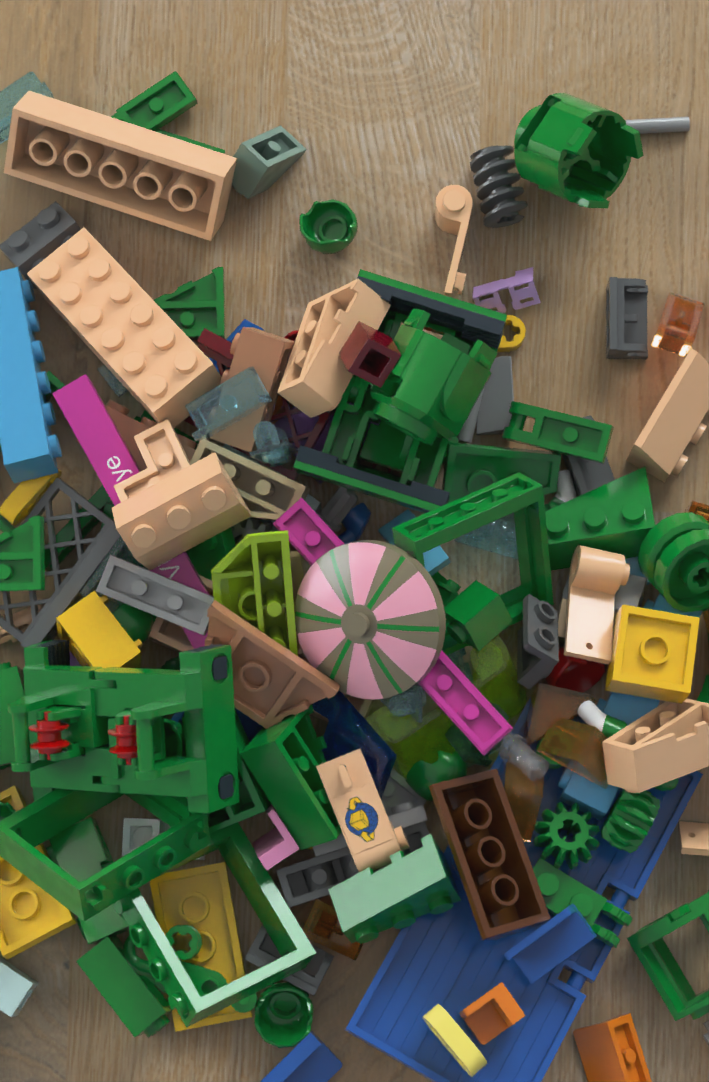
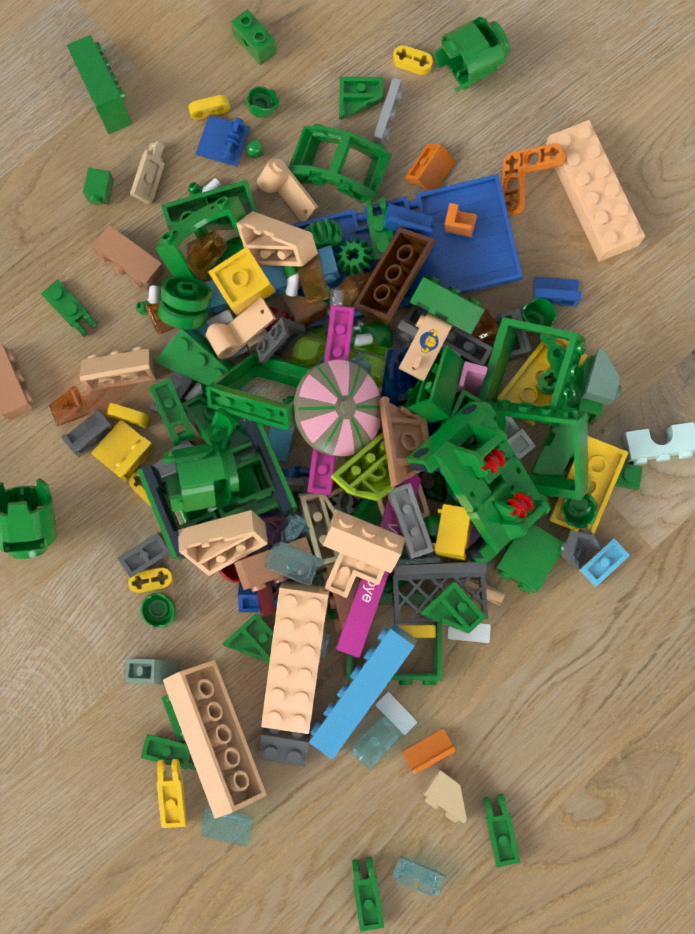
camera: 135 degrees left, 0 degrees up
(102, 70) = (171, 796): none -> yellow hinge
(114, 997) = (603, 380): none -> sand green slope
(367, 243) = (150, 575): none -> yellow beam
(369, 354) = (213, 510): dark red brick -> none
(413, 254) = (144, 554): none -> dark grey hinge
(442, 739) = (361, 340): none -> white arm
(454, 216) = (100, 554): light nougat door -> none
(455, 1040) = (485, 227): light yellow beam -> none
(476, 464) = (222, 428): none -> green hips
(476, 616) = (292, 366): green brick -> none
(496, 186) = (68, 546): dark grey piece -> none
(521, 277) = (107, 496): lavender piece -> none
(565, 343) = (123, 450): none -> yellow bracket
(606, 384) = (128, 415): none -> yellow beam

